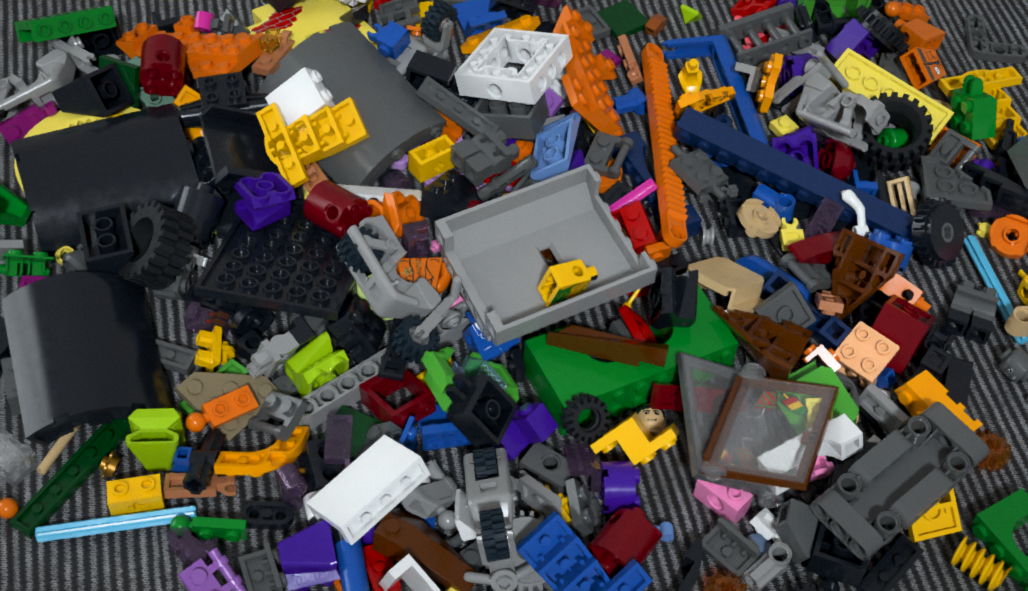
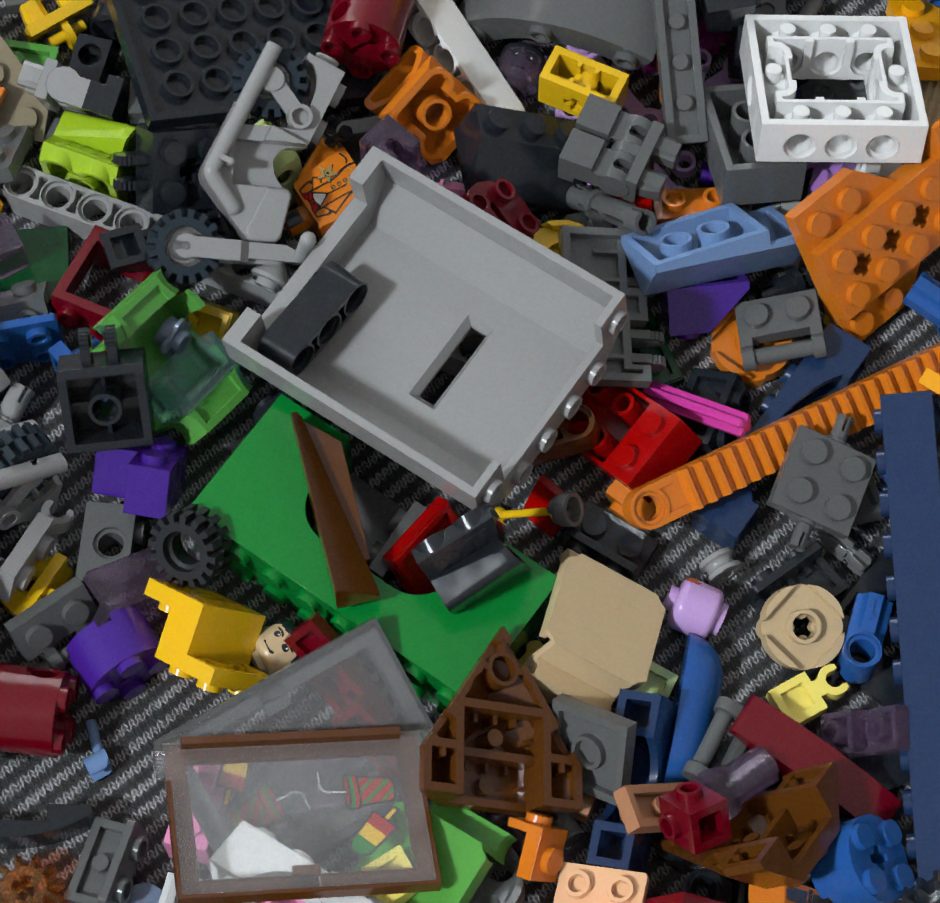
camera: 65 degrees right, 15 degrees up
(499, 296) = (313, 318): none -> black beam
(565, 281) = (389, 378): yellow torso -> none
(725, 248) = (695, 608): none -> lavender head
(830, 273) = (741, 777): none -> clear purple piece
(848, 283) = (694, 817): none -> dark red brick
(850, 198) = (917, 754): white piece -> none

